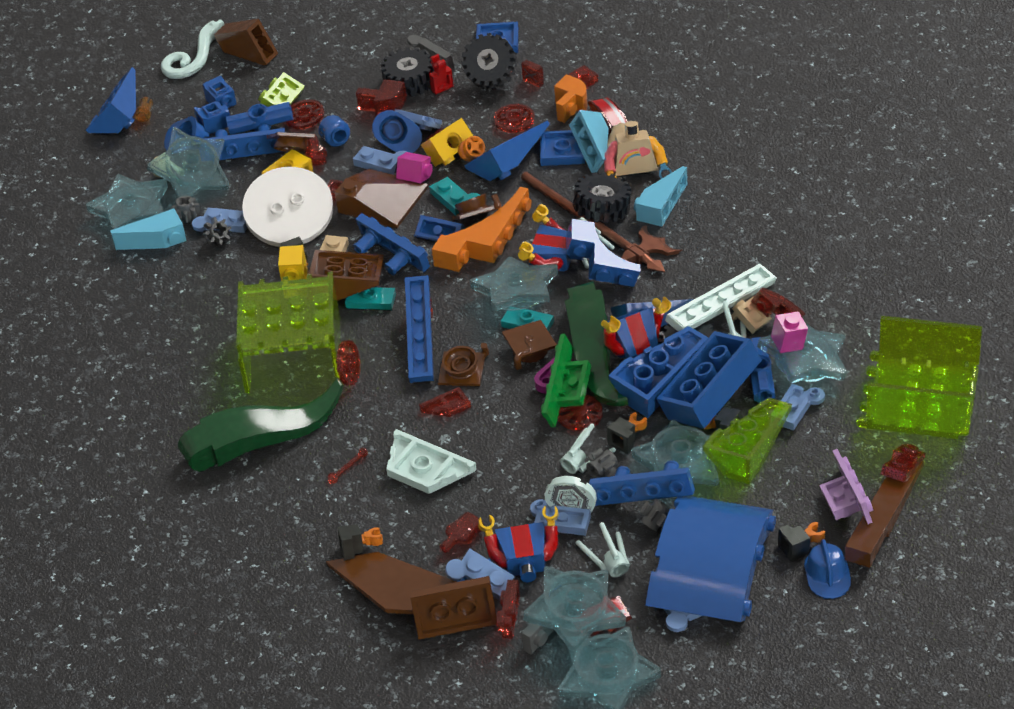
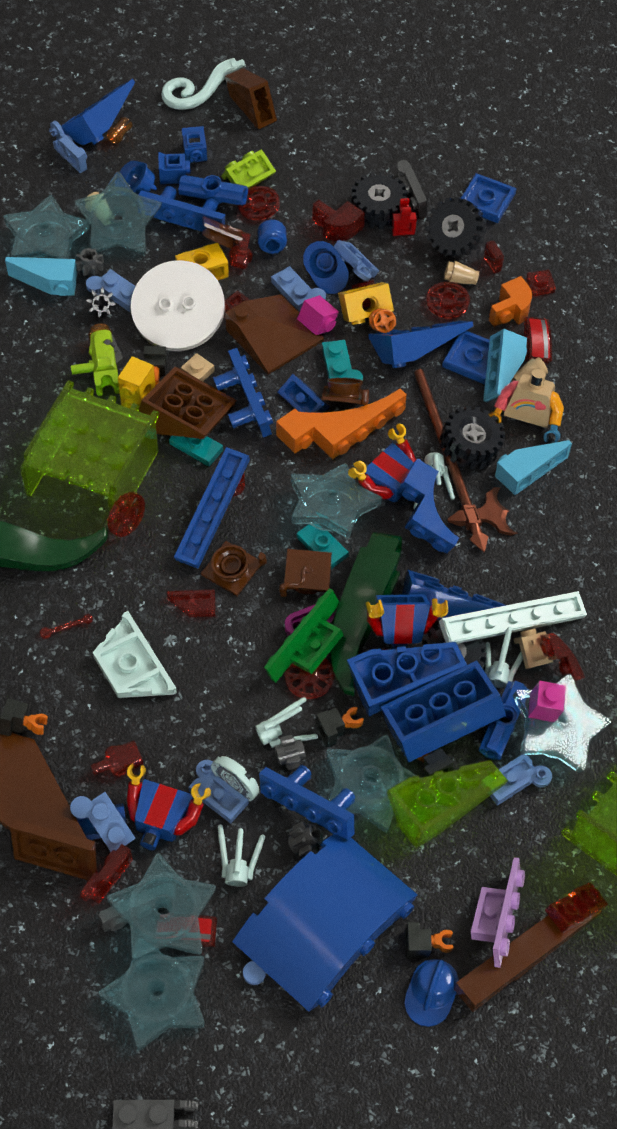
camera: 20 degrees right, 15 degrees up
(107, 138) = (66, 148): none -> medium blue hinge
(245, 266) = (104, 360): none -> lime piece
(512, 95) = (460, 273): none -> tan cone

